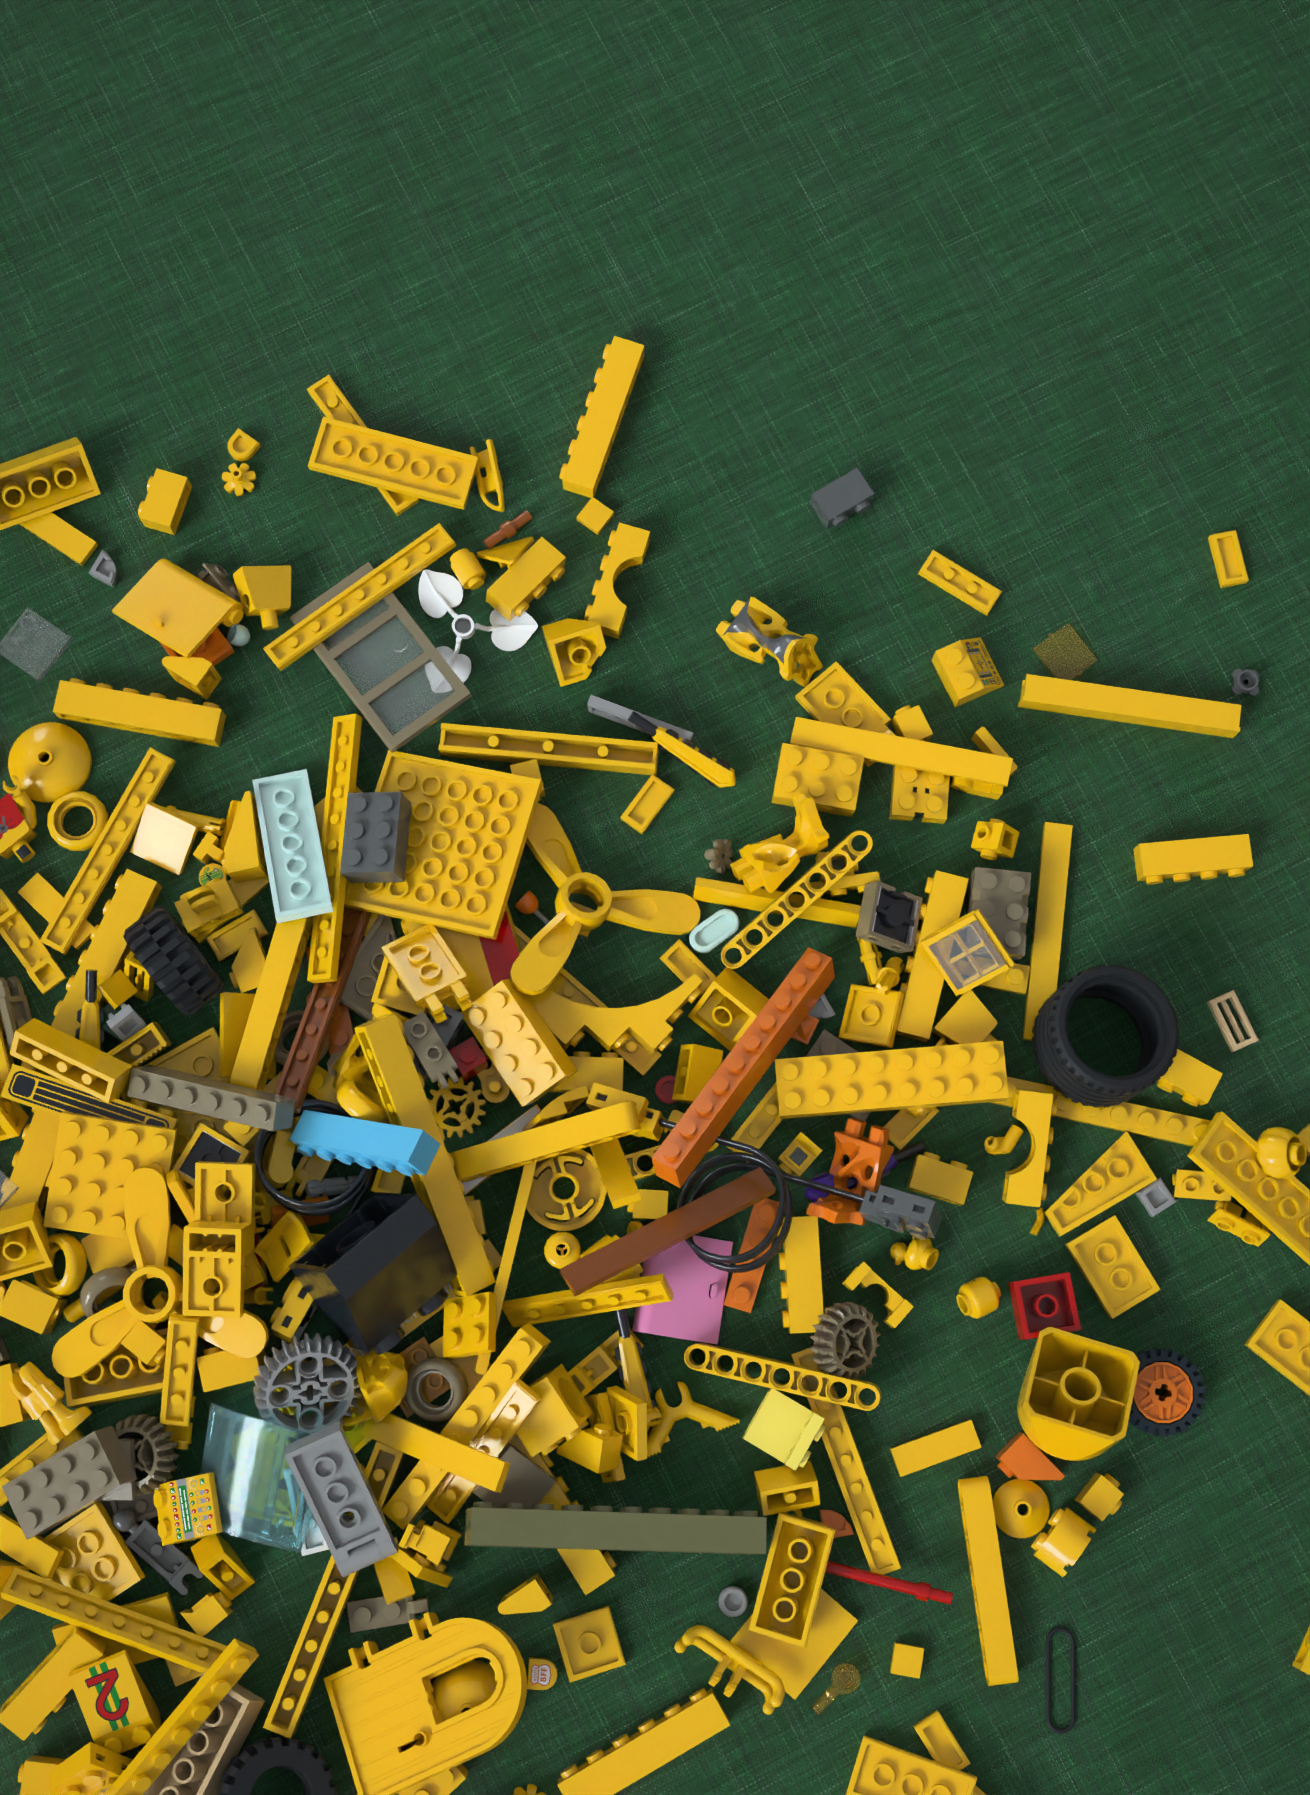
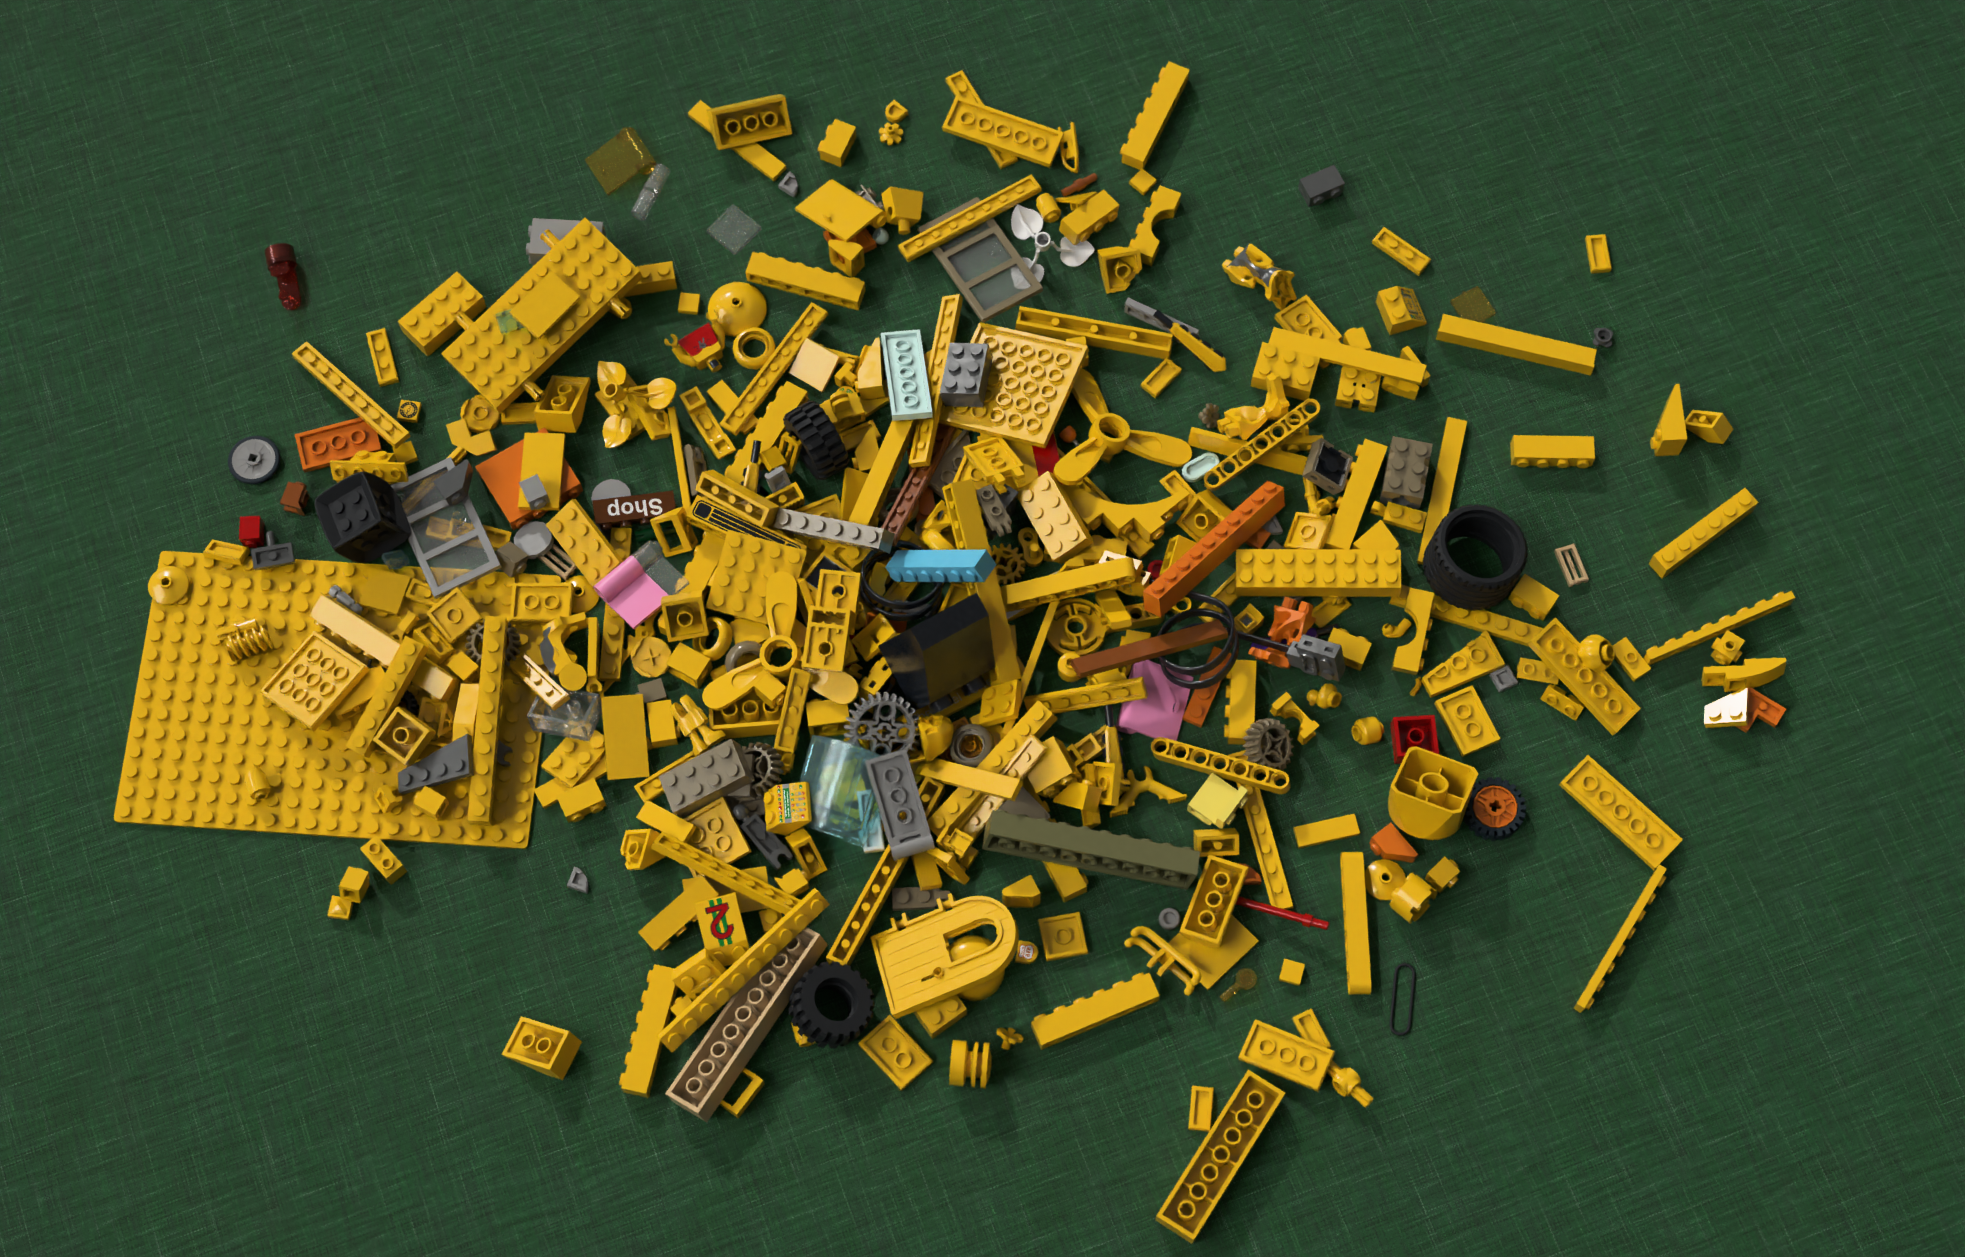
camera: 10 degrees right, 10 degrees down
(468, 1059) = (1020, 530): red brick -> none
(967, 952) = (1381, 491): clear piece -> none
(994, 839) = (1409, 423): yellow brick -> none

